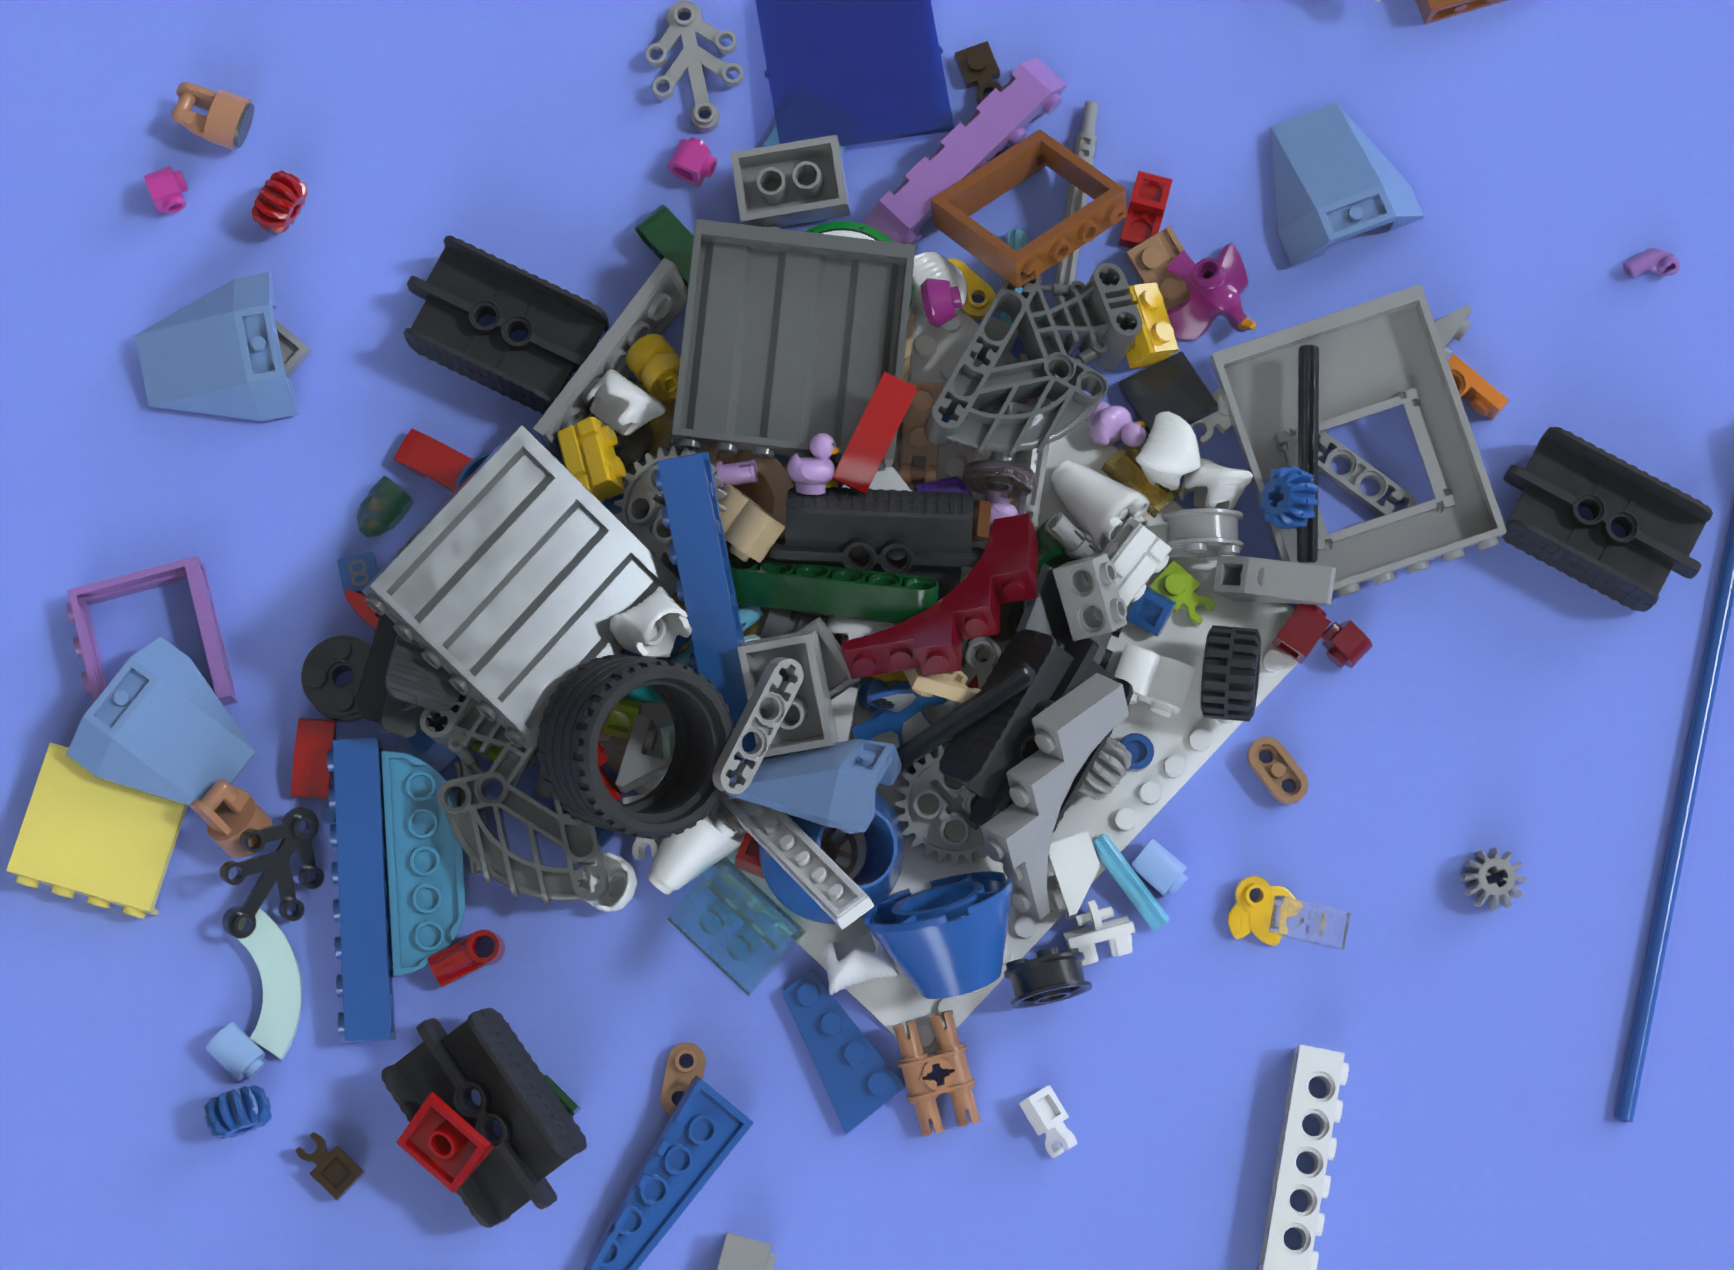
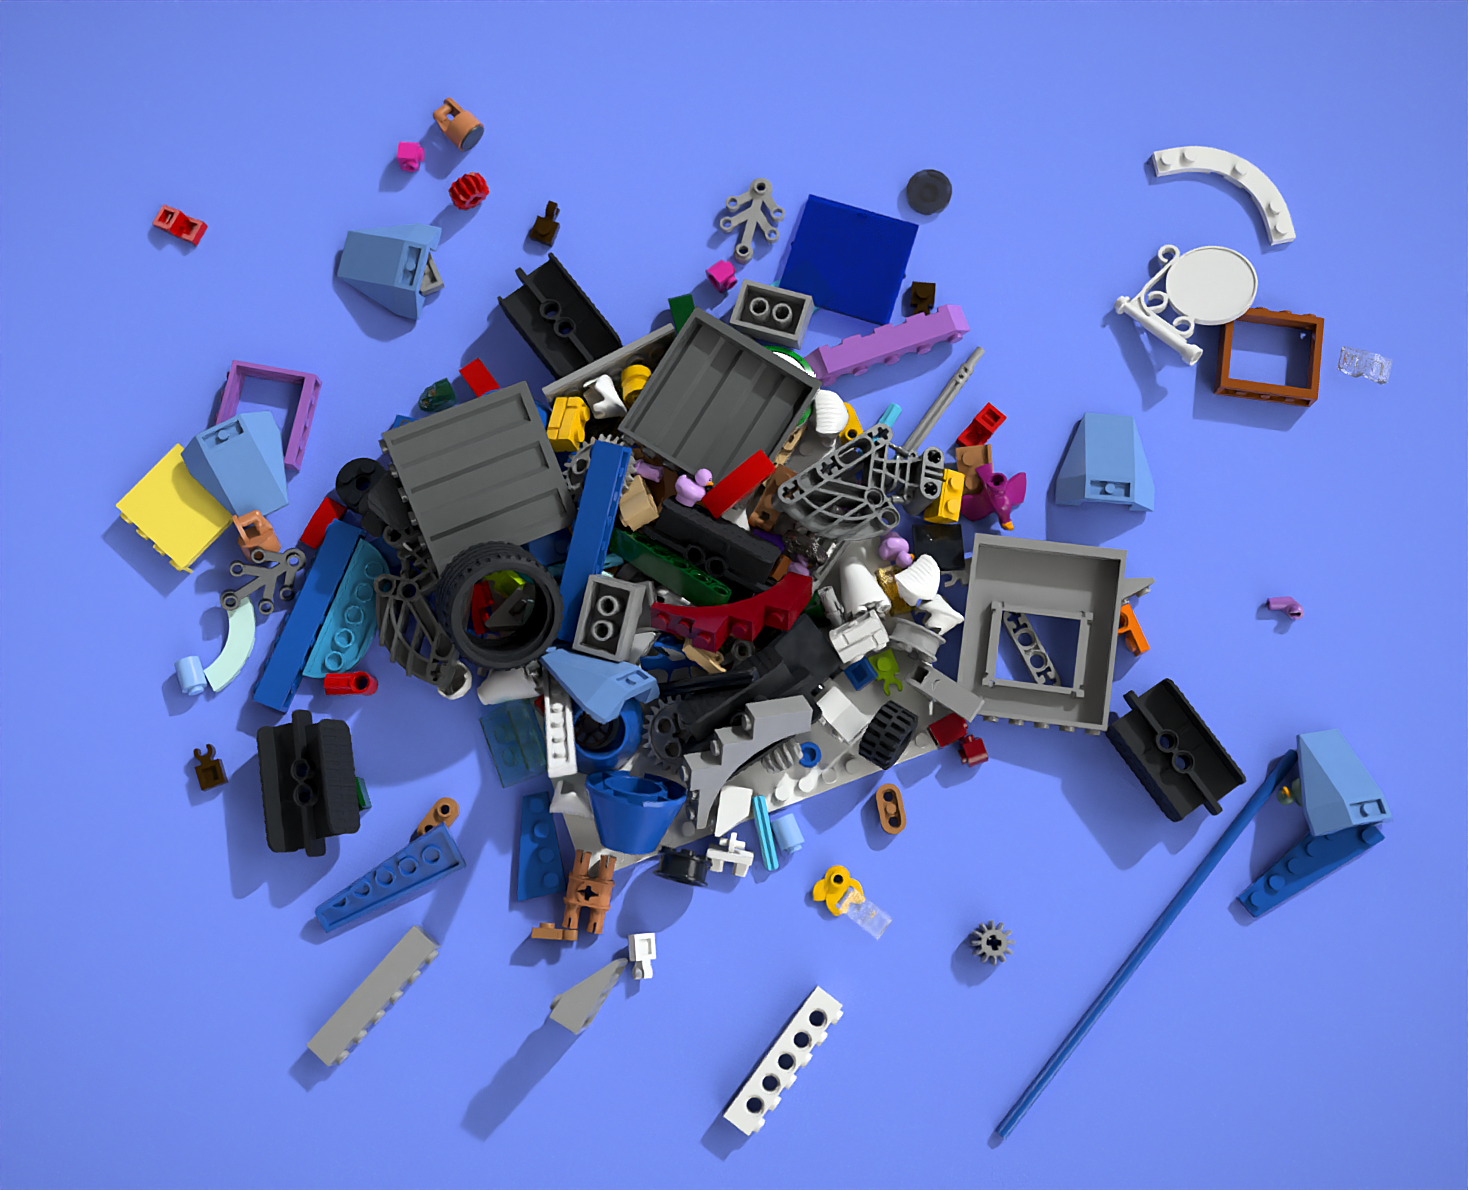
camera: 35 degrees right, 0 degrees up
(238, 1111) = (171, 710): blue gear -> none
(412, 205) = (545, 228): none -> dark brown plate
(444, 1143) = (271, 788): red slope -> none
(651, 626) = (546, 537): white hair -> none
(753, 722) = (573, 623): light grey beam -> none
(909, 1152) = (547, 931): none -> medium nougat plate
(940, 301) = (821, 423): magenta cone -> none
(970, 194) = (906, 366): dark orange window -> none
(1011, 1211) = (581, 1003): none -> light grey slope
(1081, 598) = (818, 646): light grey brick -> none
(1288, 497) = (977, 643): blue gear -> none
(1308, 443) = (1004, 622): black axle -> none

